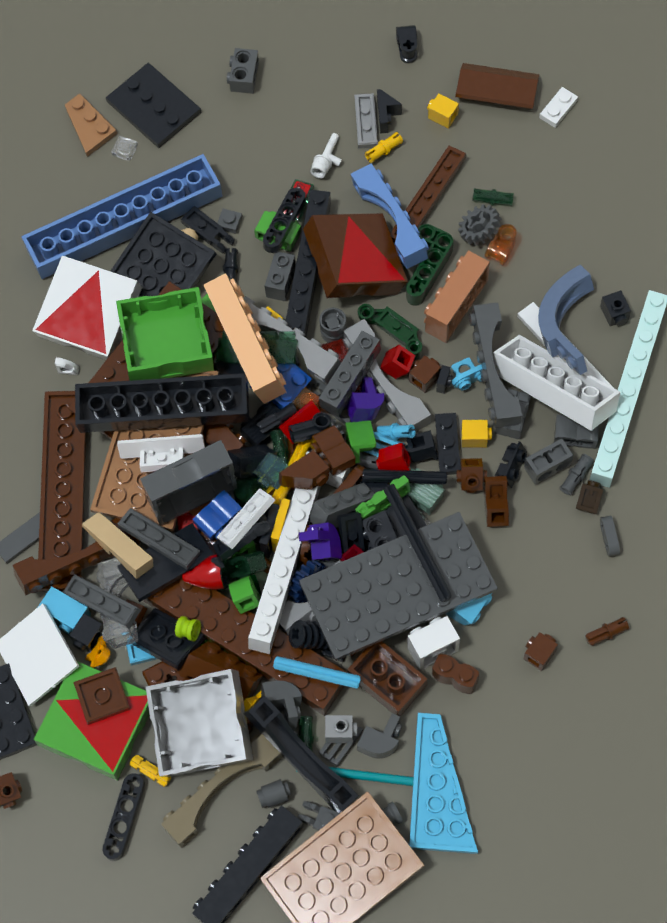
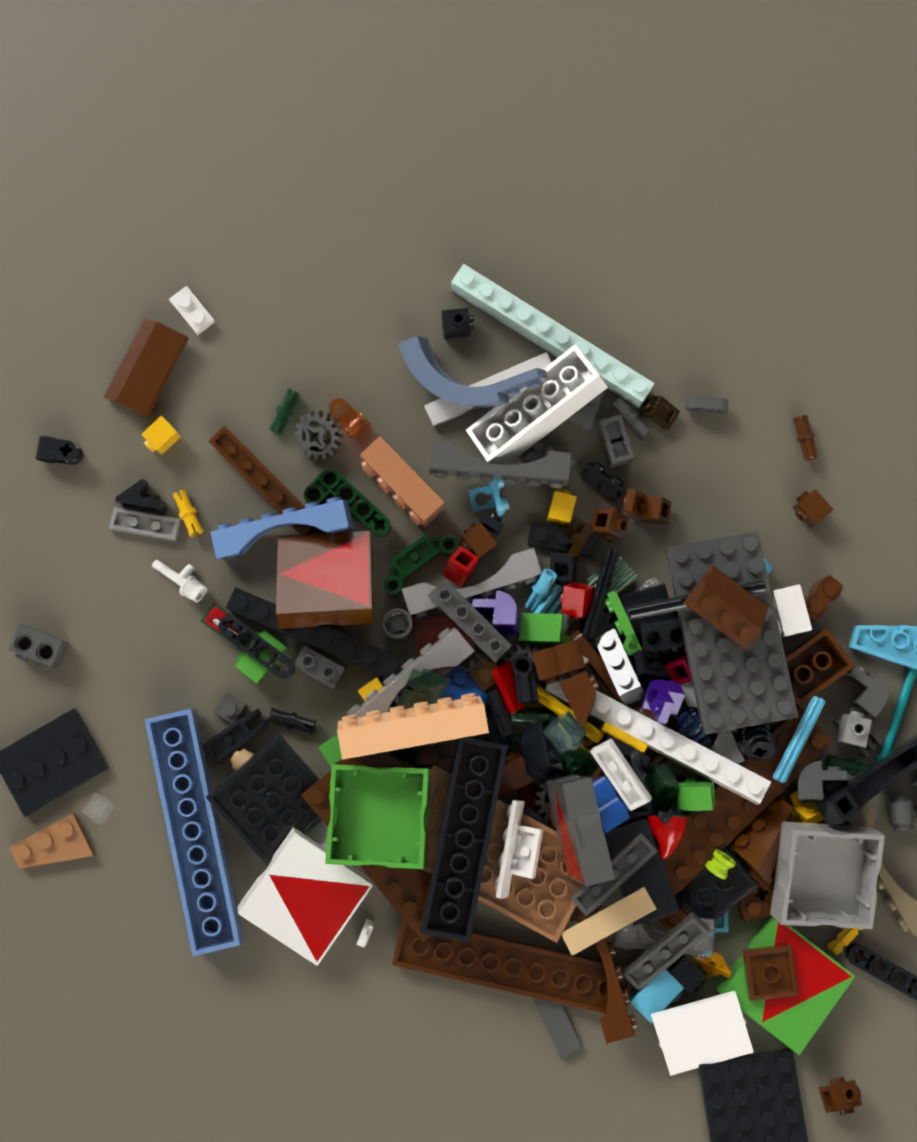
camera: 85 degrees left, 15 degrees up
(415, 563) = (727, 607): none -> reddish brown slope
(450, 447) = (579, 533): none -> dark brown bracket

